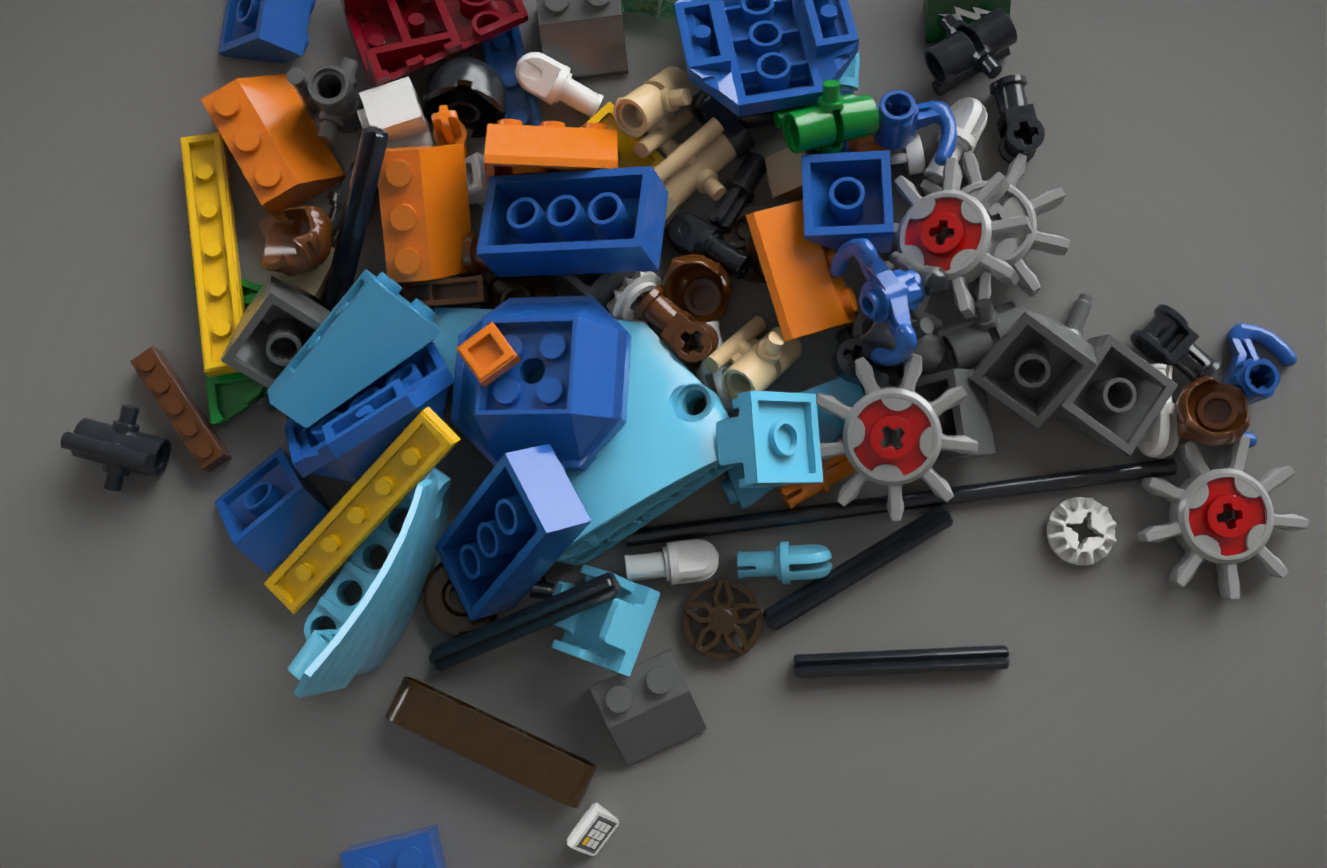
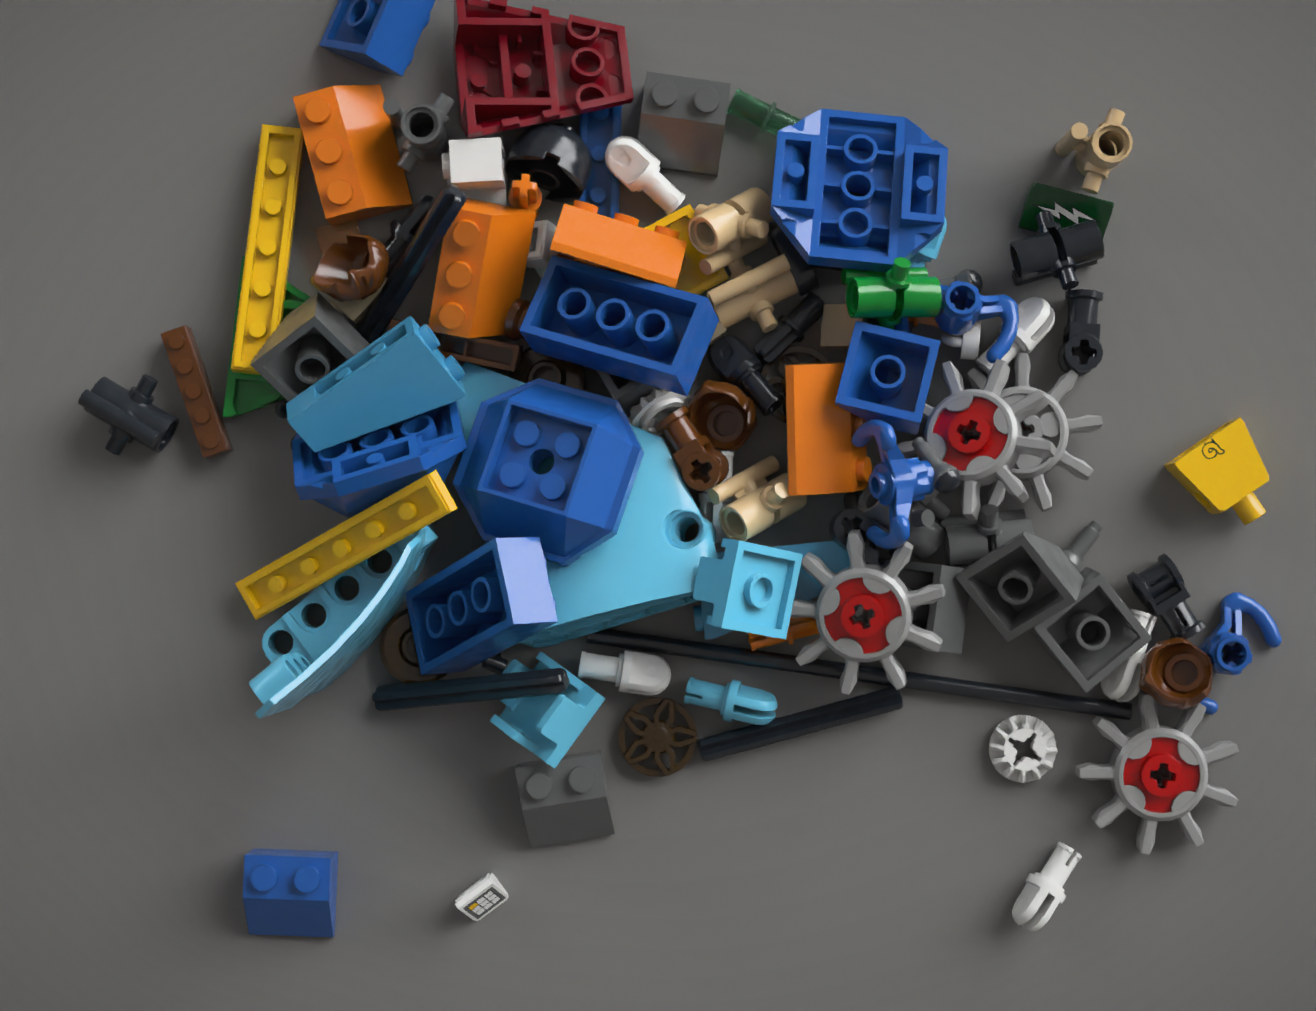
camera: 15 degrees right, 5 degrees up
(271, 511) = (260, 515): blue slope -> none
(488, 354) = (504, 436): orange tile -> none
(491, 742) = (409, 790): dark brown beam -> none
(901, 661) = (814, 823): black axle -> none
(1147, 664) = (1045, 889): none -> white arm
(1191, 211) = (1223, 471): none -> yellow torso

